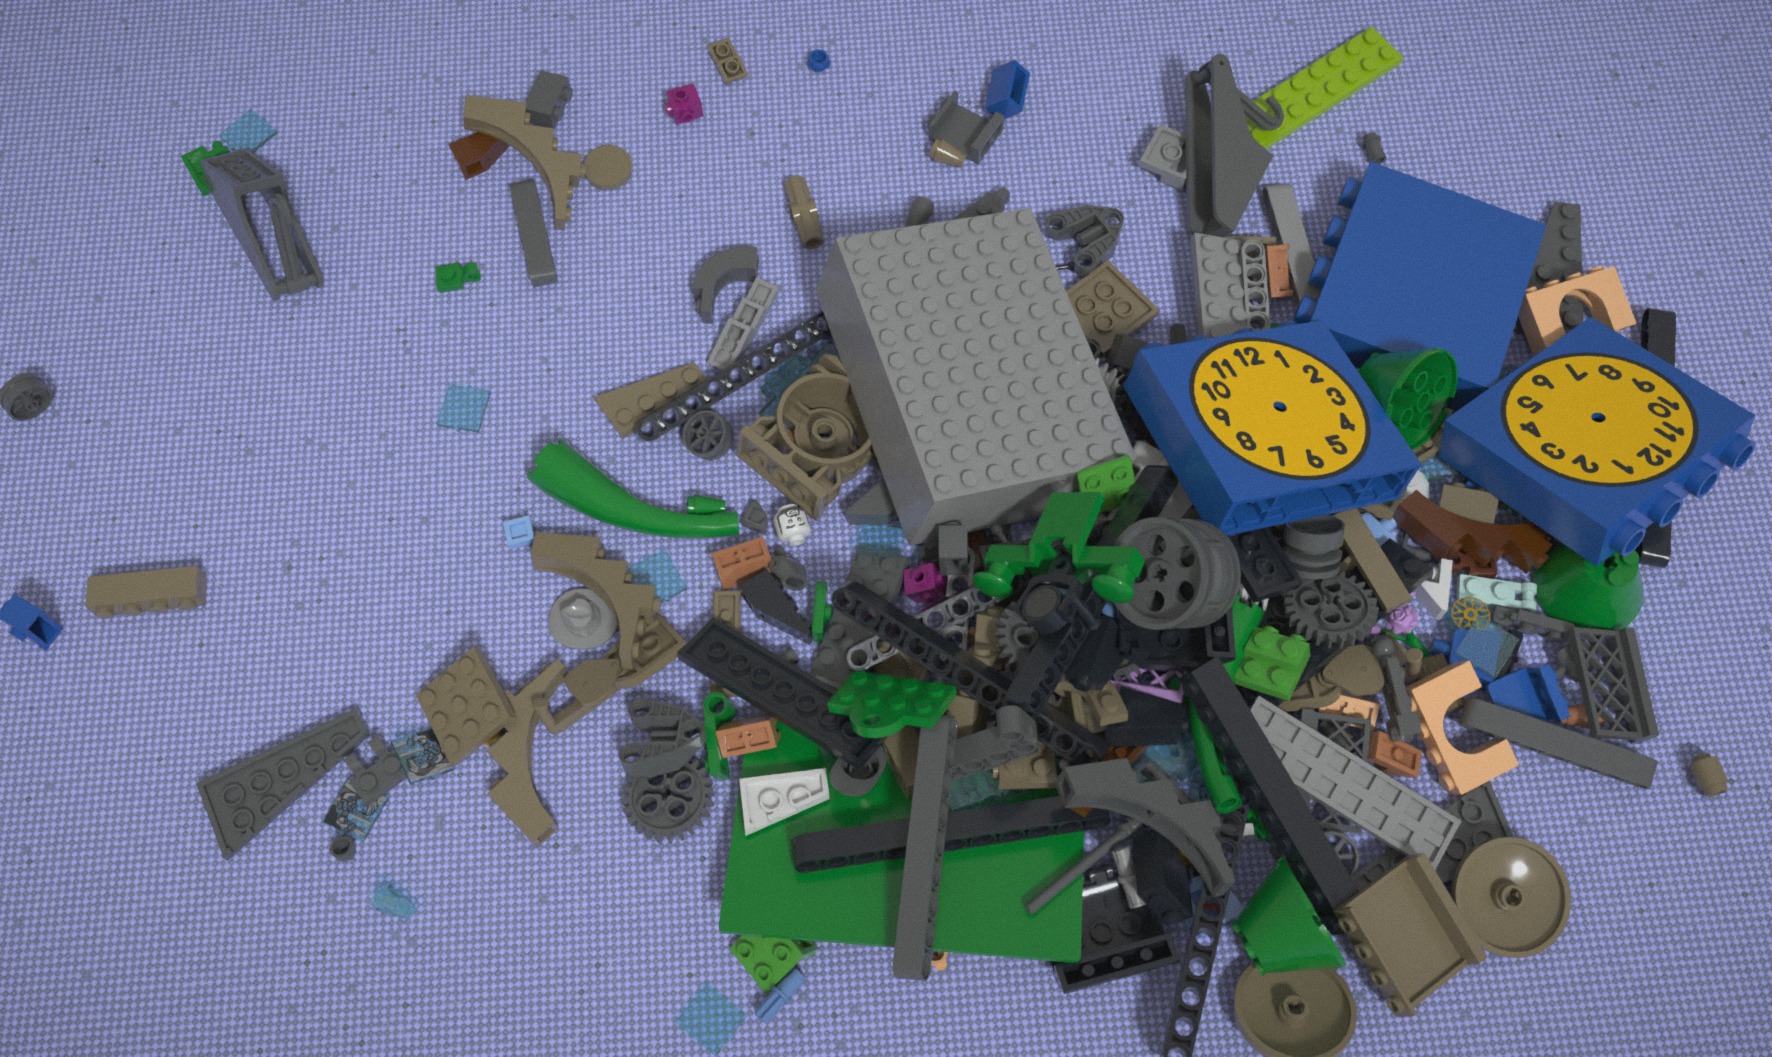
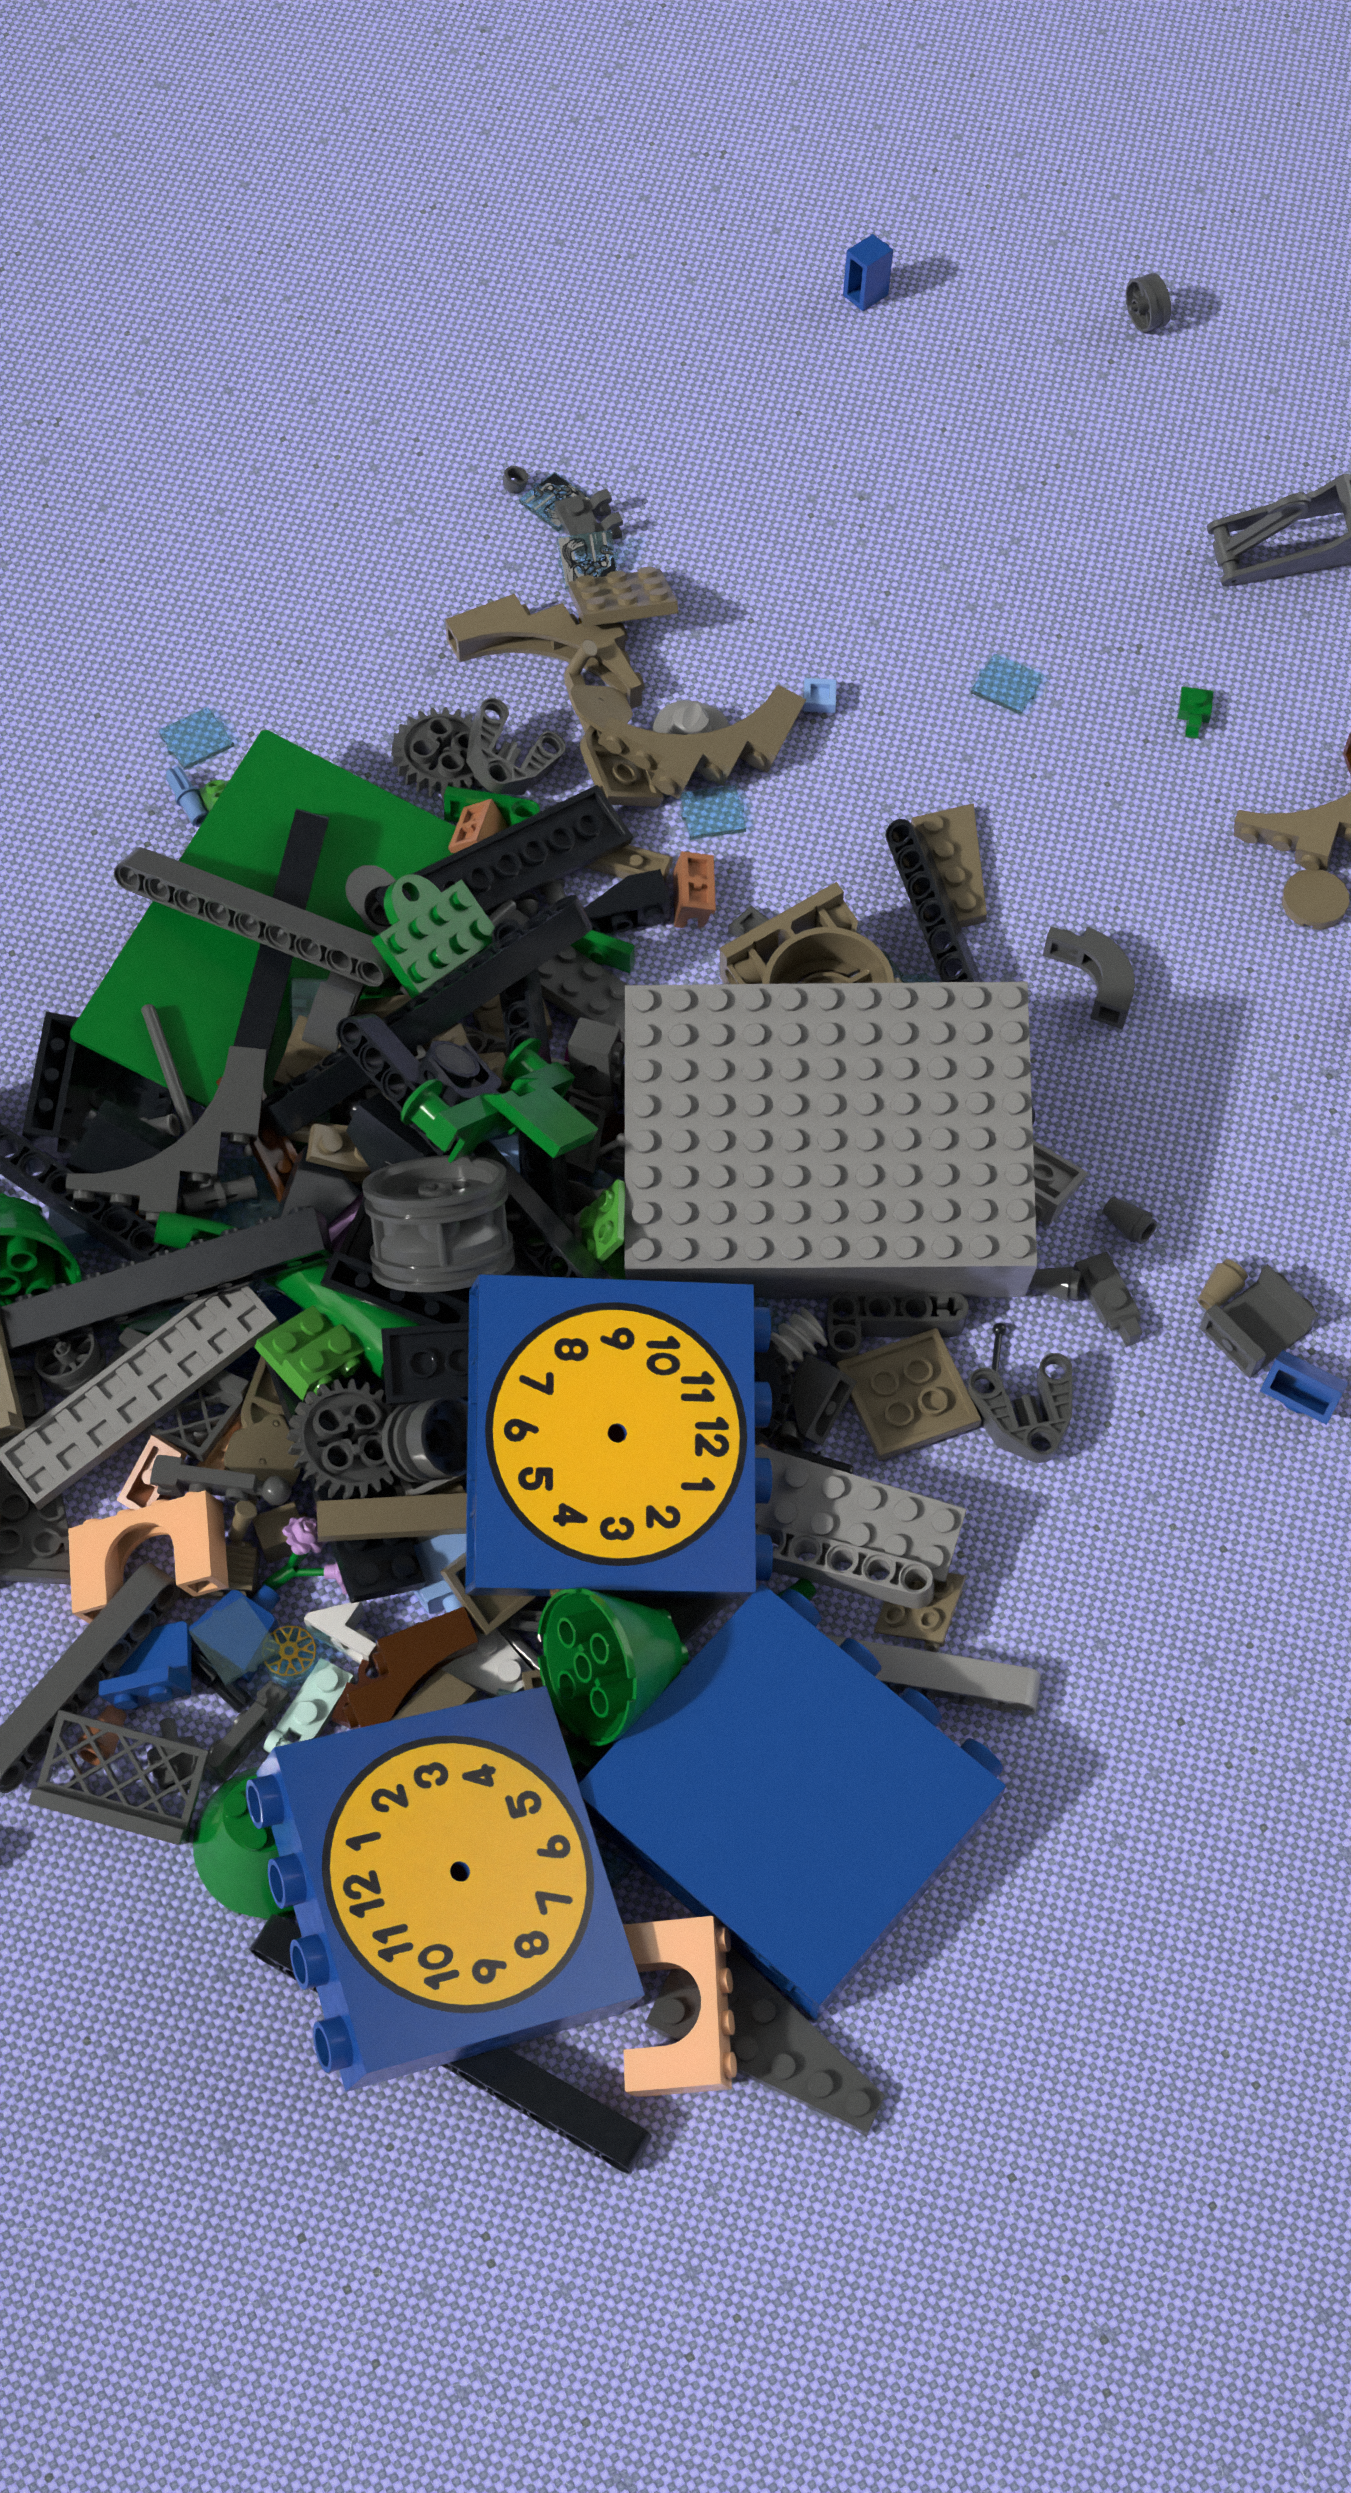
camera: 105 degrees right, 5 degrees down
(146, 591) = (872, 372): dark tan brick -> none
(262, 787) = (614, 434): dark grey wing -> none
(393, 902) = (442, 506): clear light blue cone -> none
(533, 233) = (1226, 793): dark grey beam -> none
(586, 489) = (843, 761): green brick -> none
(704, 505) = (783, 873): green cone -> none
(707, 435) = (875, 895): dark grey wheel -> none
(744, 325) = (1008, 963): light grey slope -> none
(780, 796) = (388, 826): white wing -> none
(789, 571) = (662, 926): dark grey piece -> none
(792, 524) = (709, 946): white head -> none
(804, 212) = (1175, 1089): dark tan piece -> none
(1167, 156) = (1126, 1566): light grey plate -> none
(1221, 154) = (1083, 1607): dark grey piece -> none
(1277, 271) = (886, 1619): nougat hinge -> none
(1326, 84) = (1201, 1832): lime plate -> none
(1374, 149) = (1064, 1865): dark grey pin -> none

